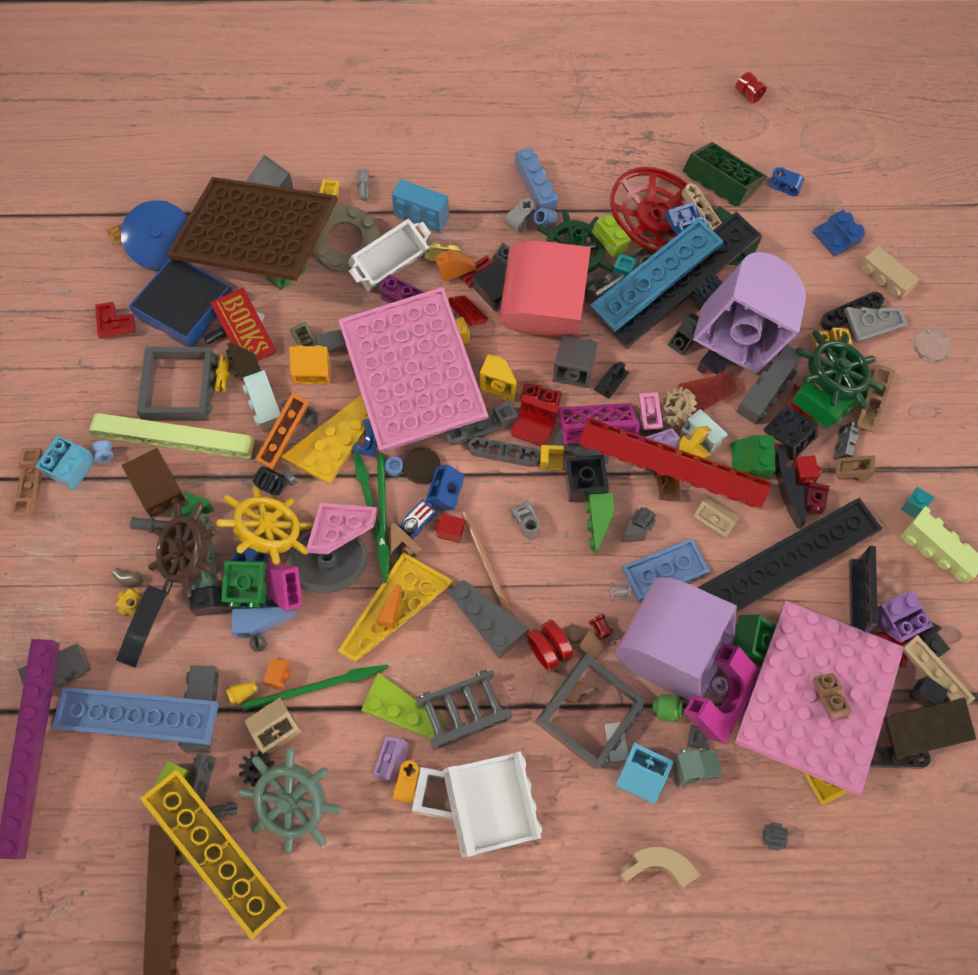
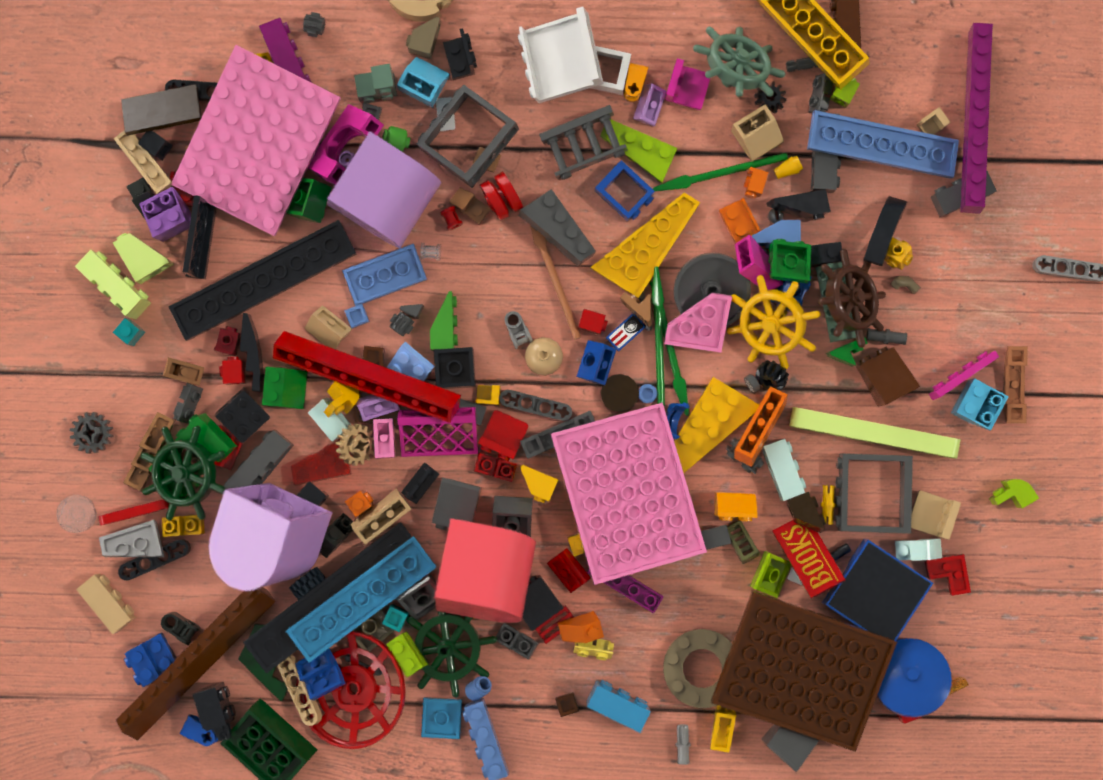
camera: 175 degrees left, 20 degrees up
(41, 390) = (1016, 489): none -> lime brick
(77, 487) = (958, 377): none -> dark pink hinge
(77, 748) = (933, 122): none -> tan panel
(103, 451) = (943, 417): light blue wheel -> none
(119, 366) = (934, 514): none -> tan bracket
(138, 333) = (918, 549): none -> light aqua brick
(223, 651) = (803, 205): none -> black slope
(281, 314) = (770, 574): none -> lime slope
(296, 636) = (739, 220): none -> orange plate
(348, 779) = (687, 86): none -> dark pink bracket
(389, 254) = (654, 640): white container -> none
(390, 610) = (651, 232): orange slope -> none
(432, 675) = (611, 177): none -> blue window
(466, 212) = (567, 704): none -> reddish brown tile
(497, 496) = (543, 356): none -> tan cylinder
(520, 215) = (508, 691): light grey piece -> none
(522, 353) = (513, 514): none -> dark grey slope
(576, 199) = (441, 718): none -> dark azure tile
(605, 804) = (459, 57): none -> black bracket
(631, 477) = (410, 363): none -> light blue plate
(646, 347) = (380, 516): none -> tan brick
(647, 823) = (424, 38): none -> dark tan slope
(667, 359) = (360, 503): none -> orange brick
(689, 528) = (357, 316): none -> medium blue tile
(777, 194) = (215, 709): none -> black hinge
(804, 800) = (282, 48): none -> magenta brick
(814, 215) = (194, 662): none -> reddish brown brick
(820, 258) = (181, 627): none -> pearl dark grey piece
(831, 696) = (247, 132): medium nougat slope -> none
(884, 345) = (133, 512): none -> red beam
(920, 575) = (140, 258): none -> yellowish green slope
(934, 412) = (89, 425): none -> dark grey gear

